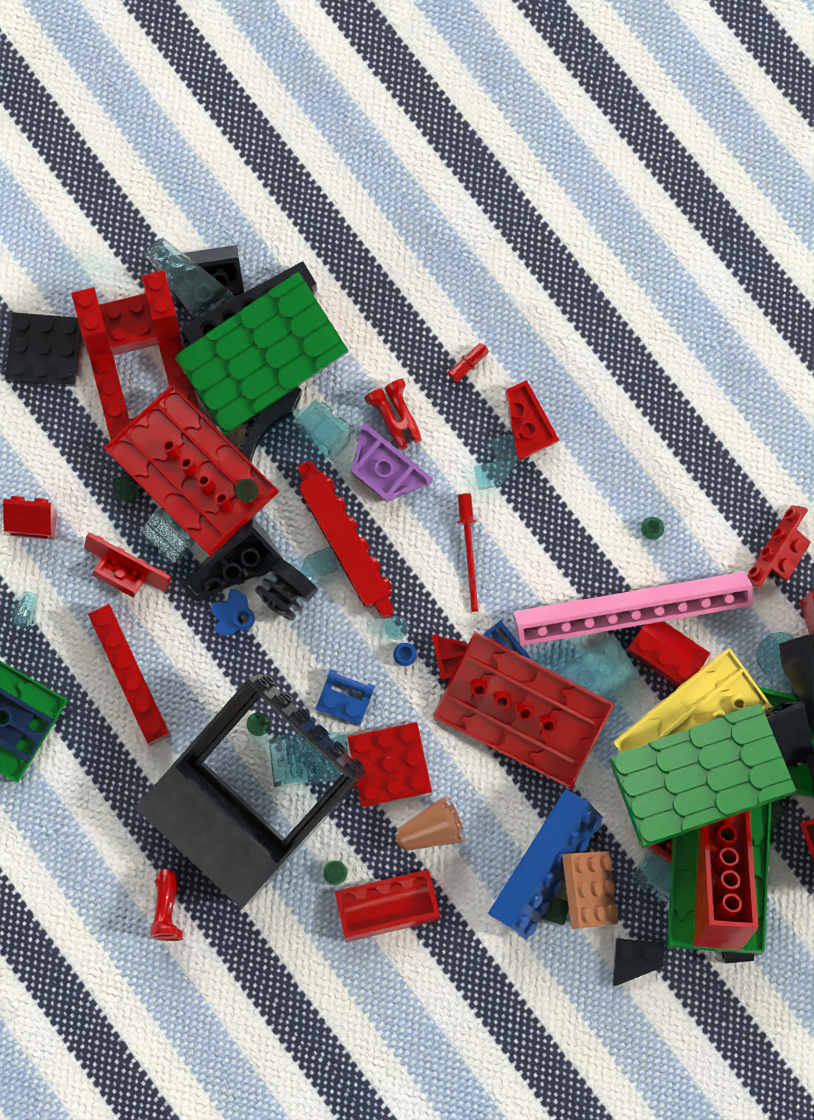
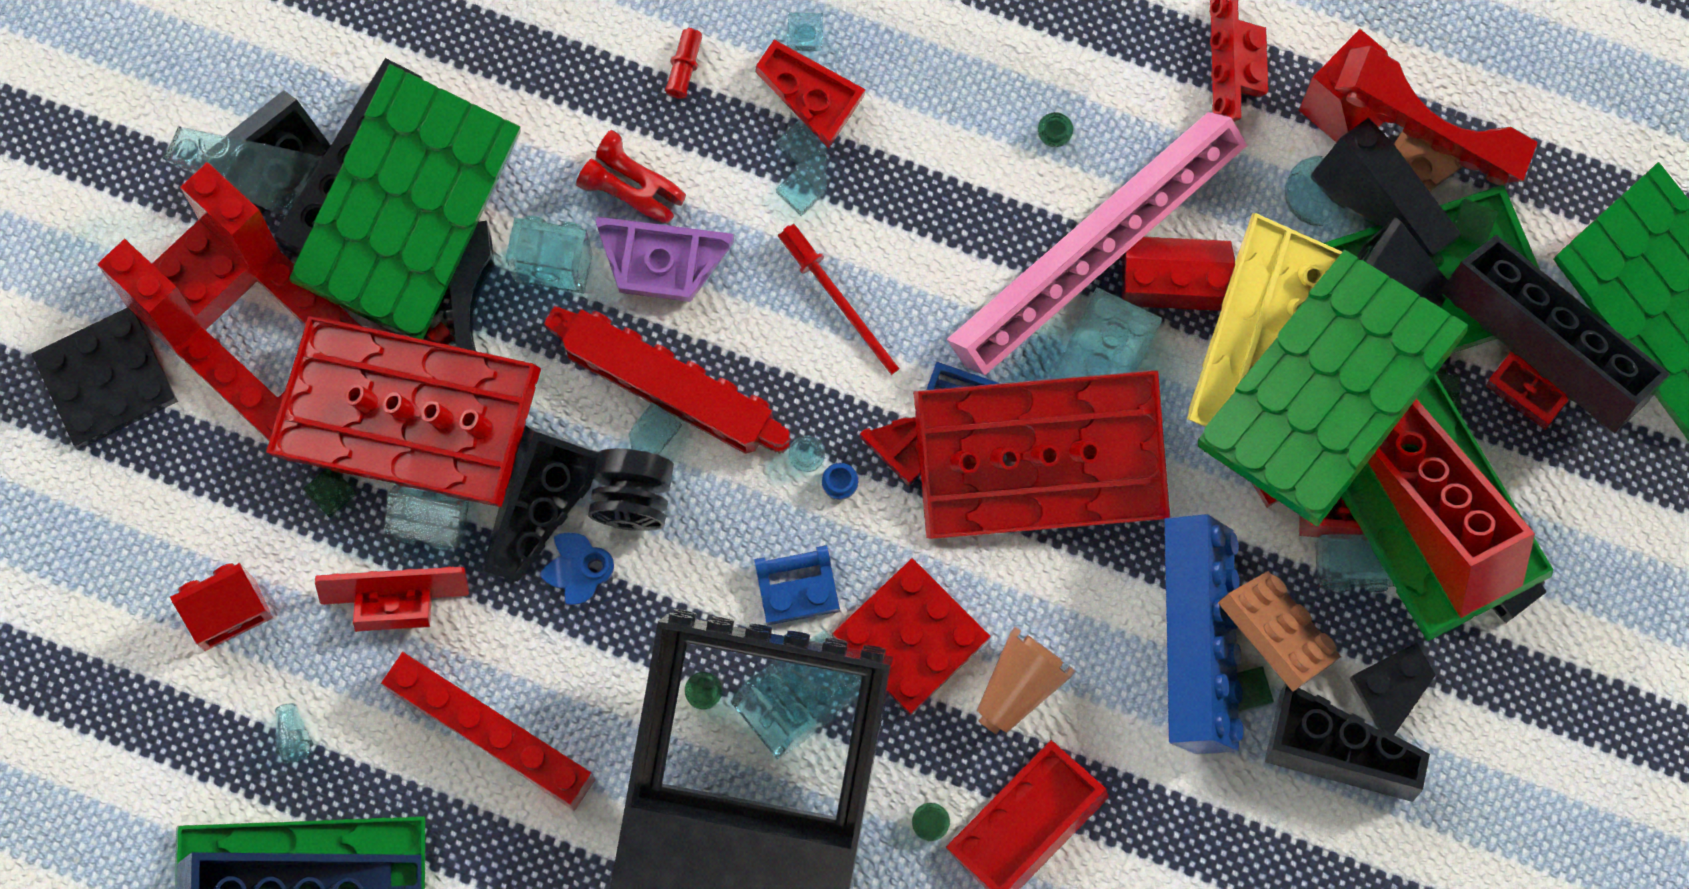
camera: 25 degrees left, 5 degrees down
(237, 437) = (439, 334): none -> red hand
(246, 490) = (496, 389): plate -> none
(547, 385) = (805, 31): none -> clear light blue plate
(584, 974) = (1341, 747): none -> black wedge

